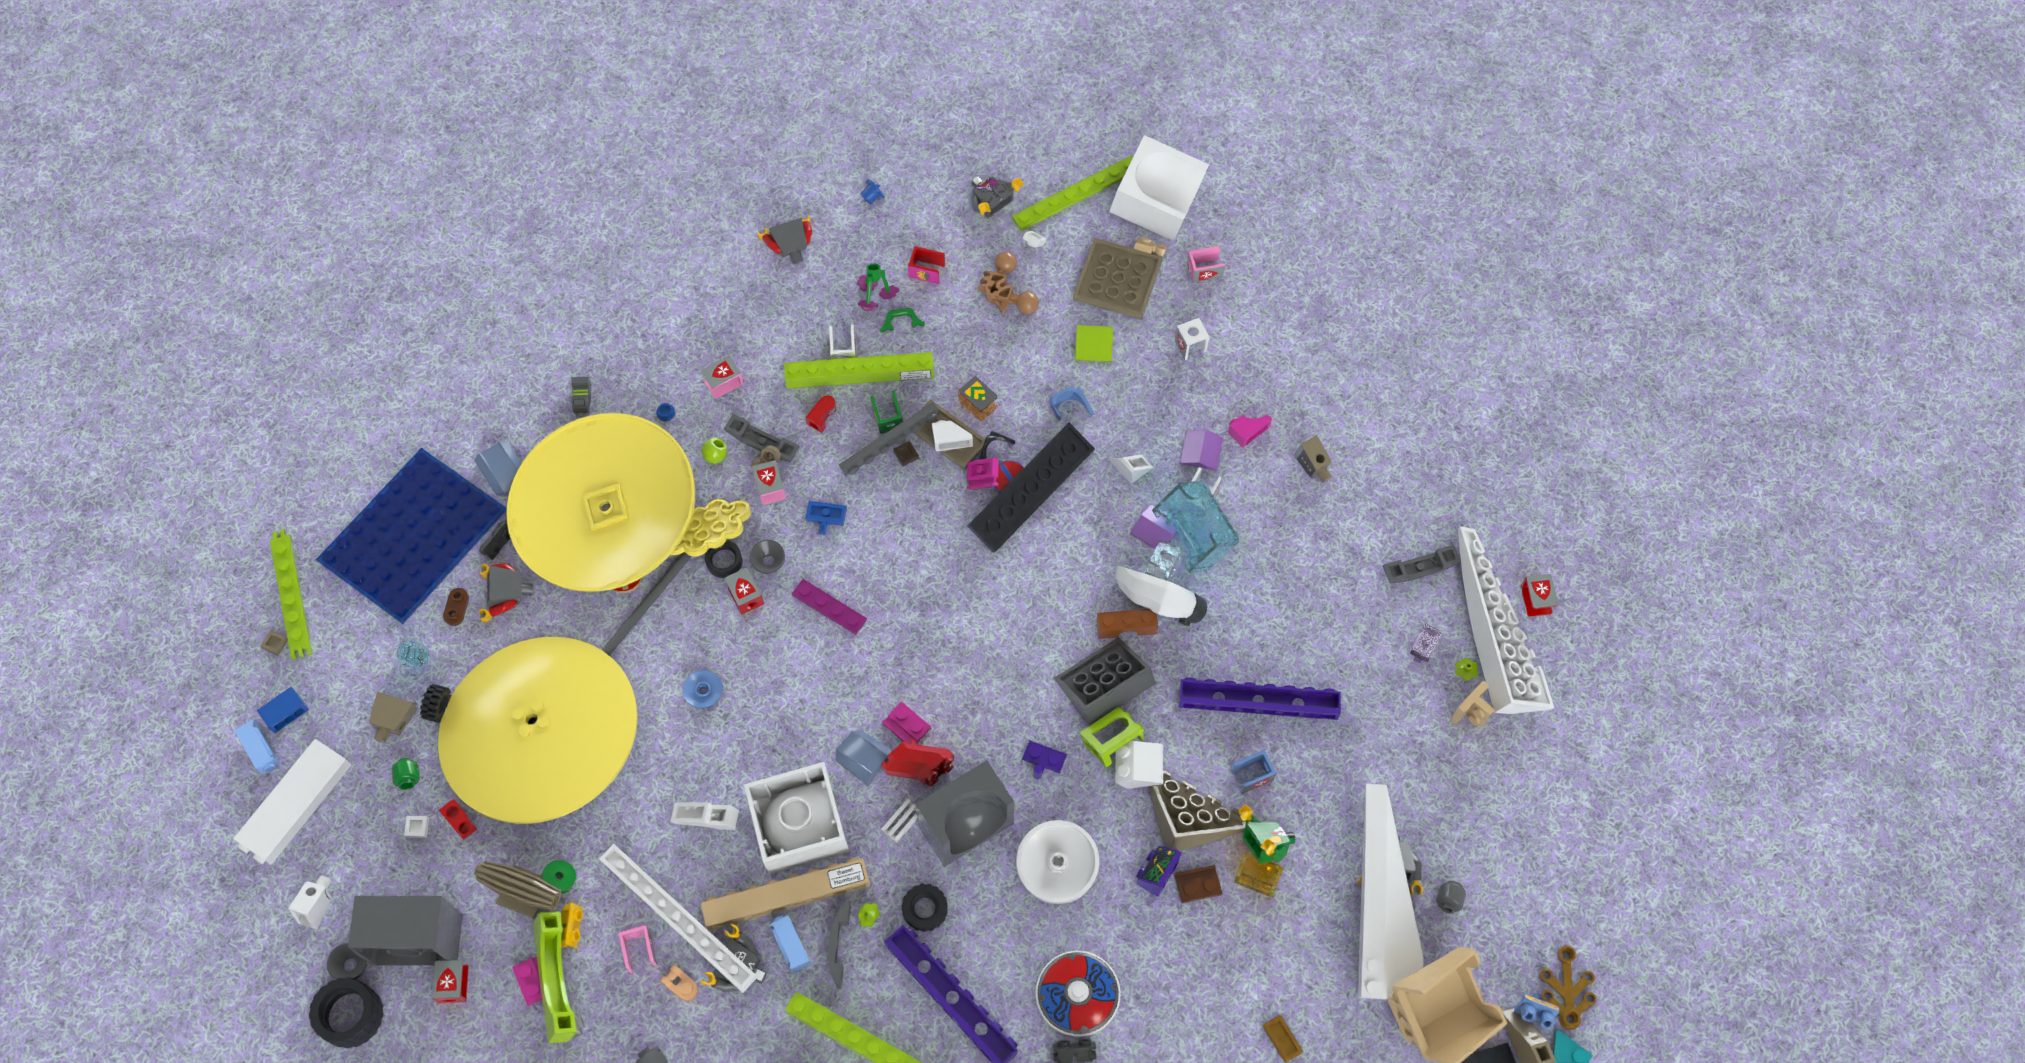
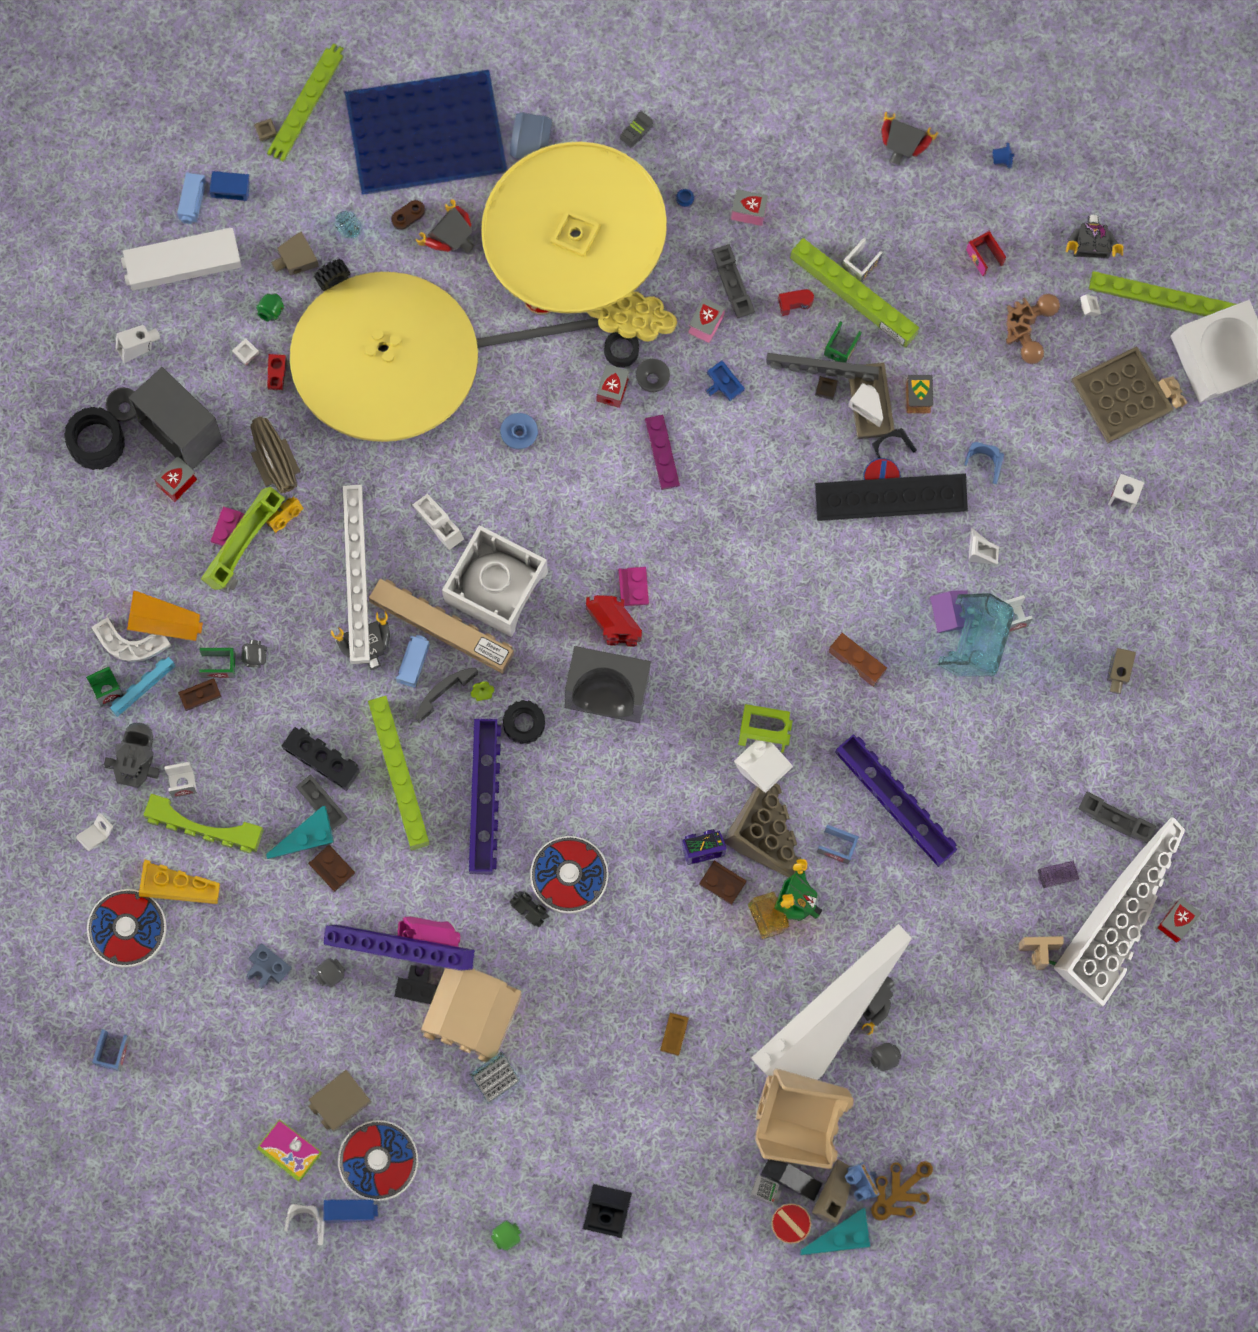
camera: 40 degrees right, 10 degrees up
(493, 545) = (472, 191): pearl dark grey hinge -> none
(563, 869) = (313, 470): green piece -> none
(629, 934) = (310, 554): bright pink piece -> none
(685, 989) = (320, 626): light nougat plate -> none
(714, 450) = (690, 260): lime piece -> none
(765, 455) = (725, 299): dark tan plate -> none
(862, 756) = (582, 579): sand blue slope -> none
(868, 282) = (929, 227): plant -> none
(890, 834) = (559, 650): white tile -> none
(901, 312) = (929, 272): green helmet -> none
(982, 473) = (864, 454): dark pink plate -> none
(1043, 758) = (704, 698): dark purple plate -> none
(1057, 862) = (641, 776): white dish -> none
(1094, 343) = (1051, 429): lime slope -> none
(1105, 680) = (801, 685): dark grey slope -> none
(1161, 596) = (897, 663): white piece -> none
(1164, 561) = (928, 640): clear brick -> none
(1201, 449) = (1047, 584): medium lavender slope -> none
(1207, 272) = (1205, 436): bright pink piece -> none
(1246, 429) = (1095, 600): dark pink arch -> none
(1463, 670) = (1066, 924): lime plant -> none

